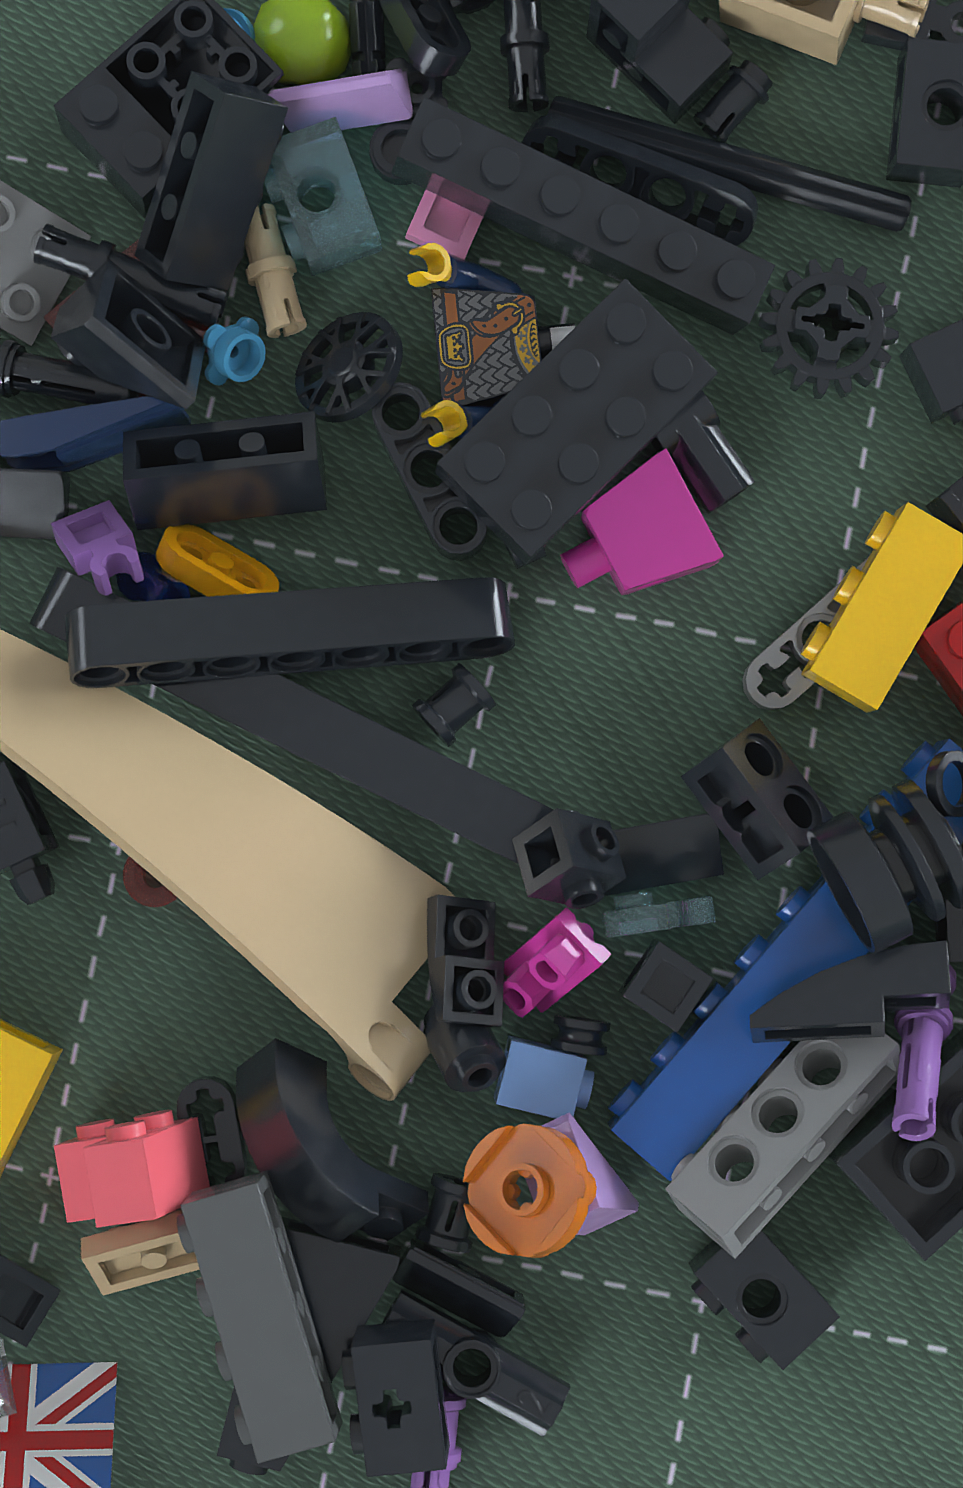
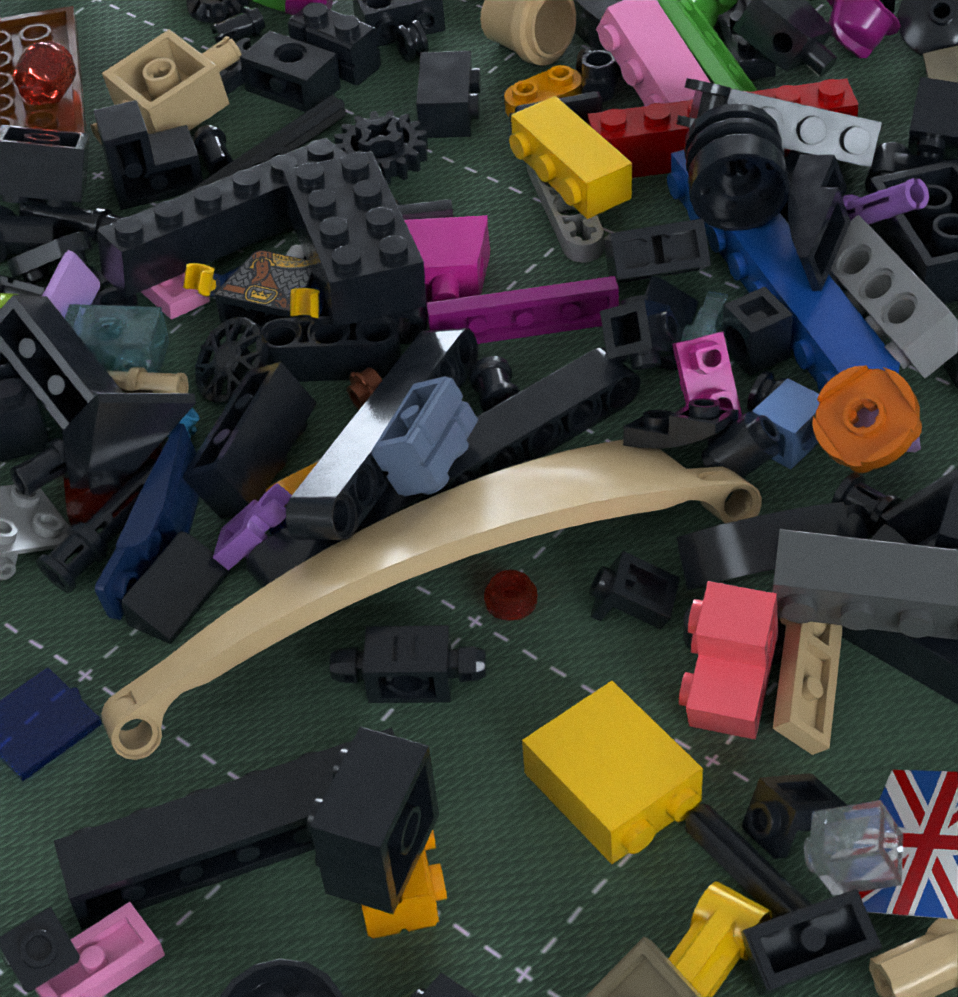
camera: 55 degrees left, 40 degrees down
(212, 1009) = (634, 589): none -> black bracket
(267, 699) = (425, 437): none -> sand blue brick
(386, 552) = (362, 386): none -> copper plate
(580, 651) = (527, 310): none -> magenta plate

